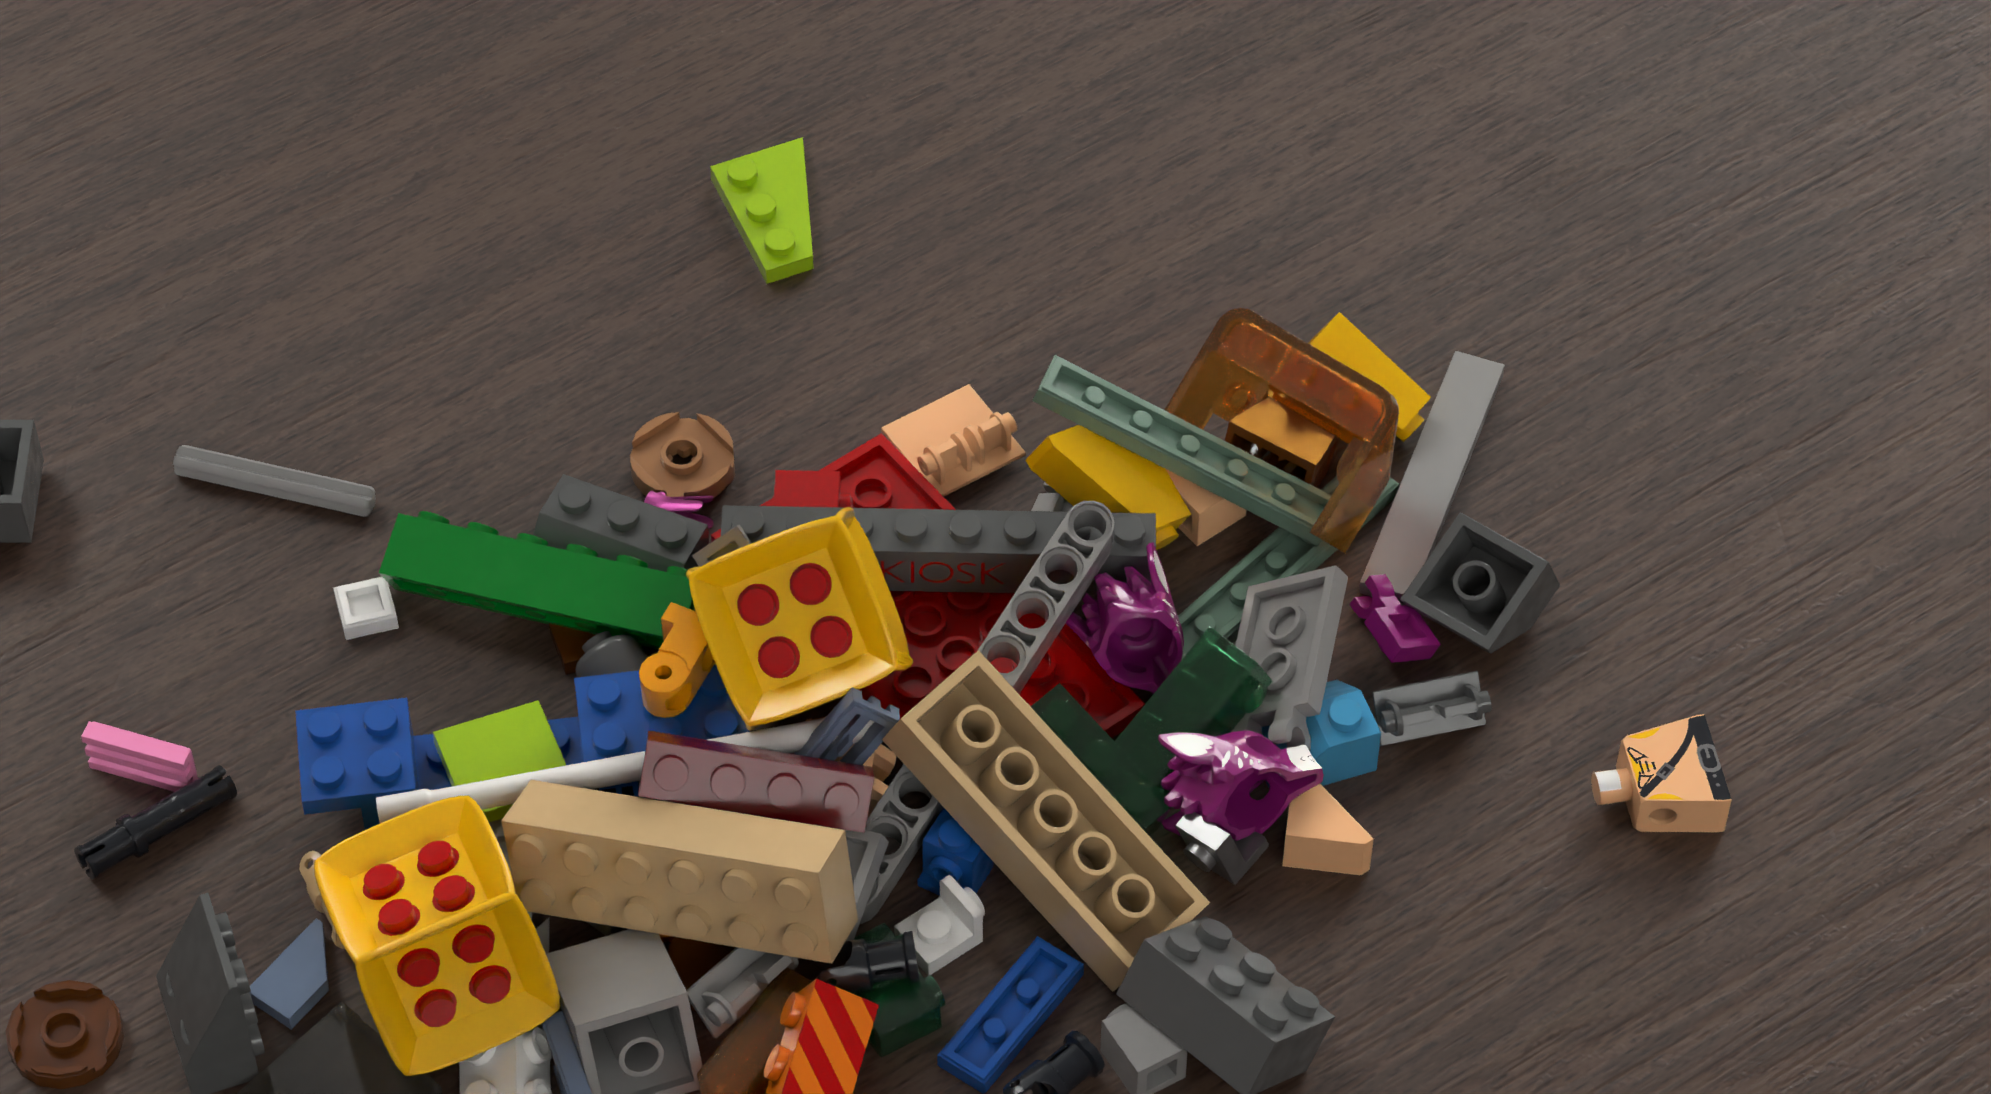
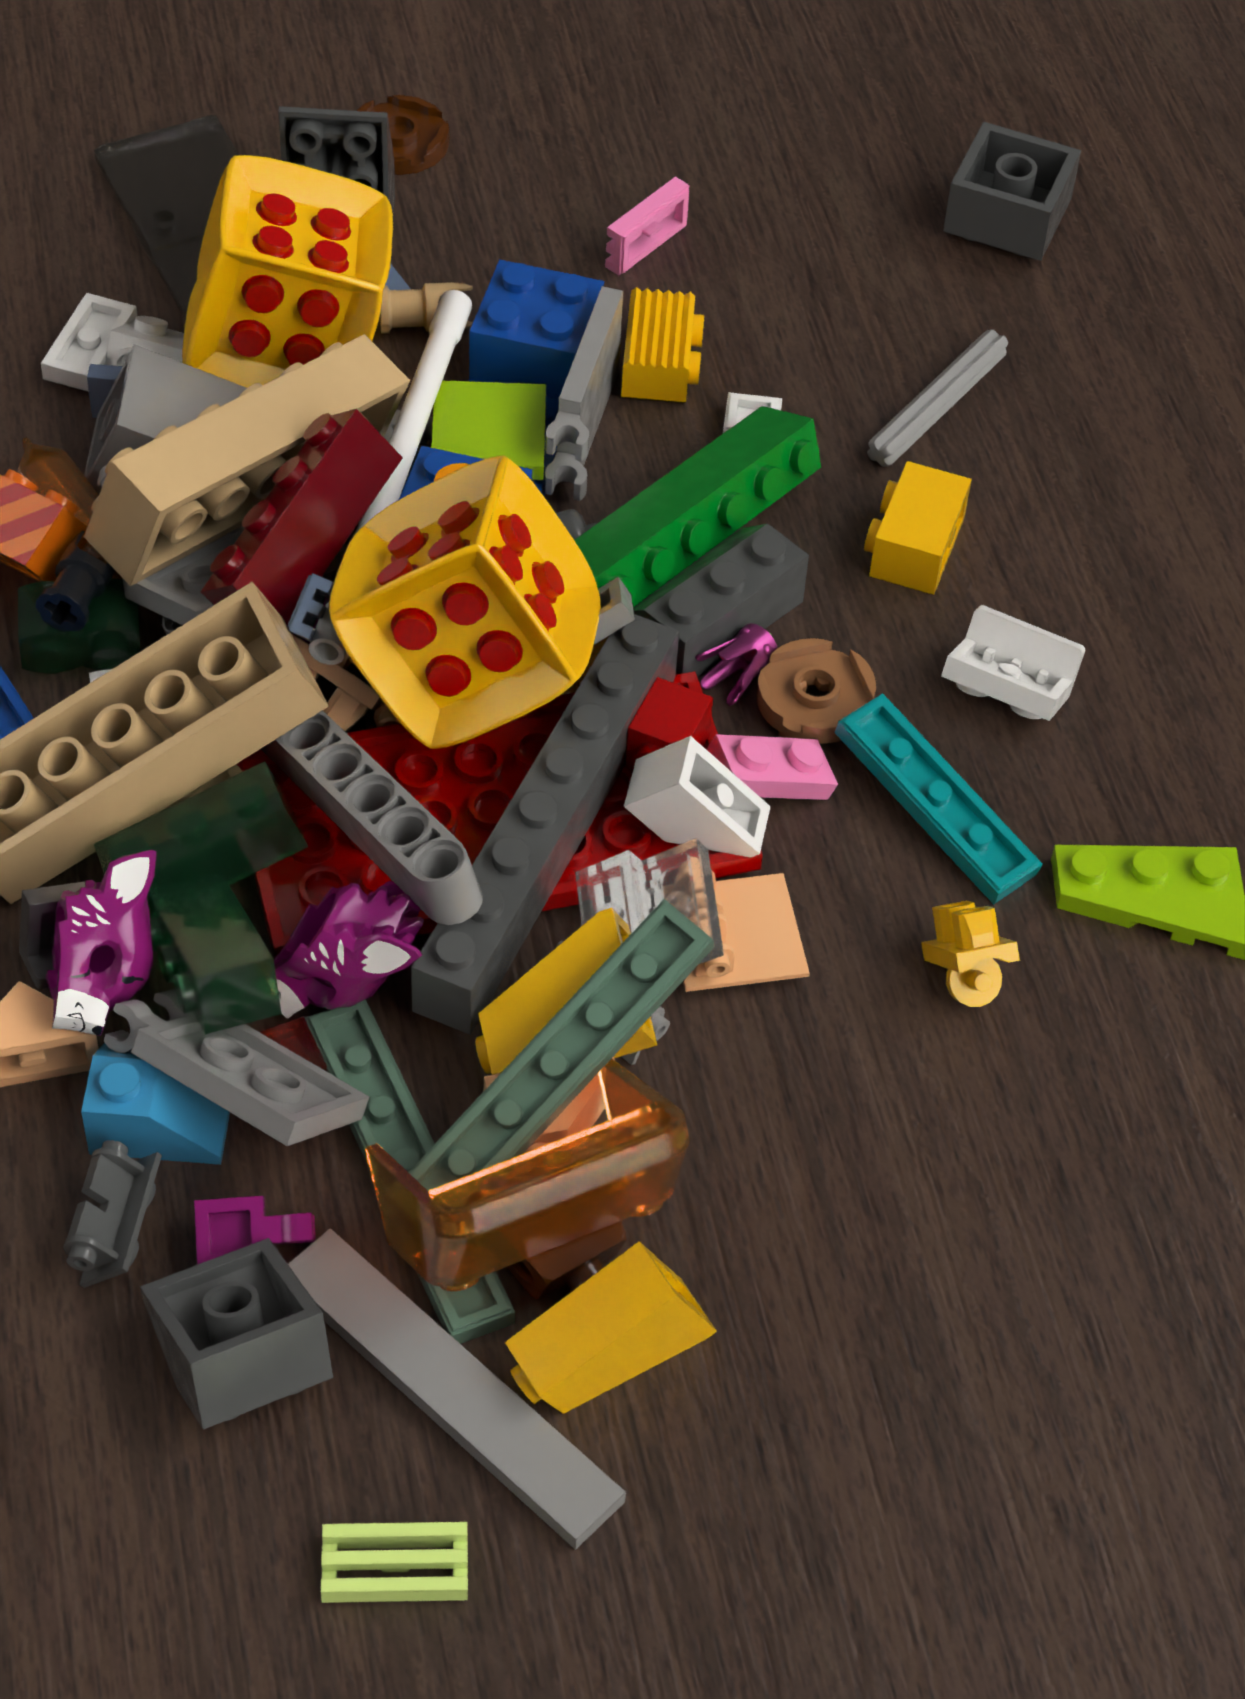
camera: 110 degrees right, 0 degrees up
(136, 833) = (571, 210): black pin -> none
(314, 680) = (659, 345): none -> yellow brick
(441, 689) = (585, 395): none -> light grey tile
(459, 439) = (918, 527): none -> yellow brick
(595, 337) = (1015, 664): none -> white bracket
(758, 350) = (938, 798): none -> teal tile
(781, 447) = (777, 765): none -> bright pink plate
(873, 469) = (692, 795): none -> white slope
(911, 280) = (966, 947): none -> yellow hips
(985, 464) = (639, 886): none -> clear slope
(1592, 449) = (394, 1537): none -> yellowish green tile

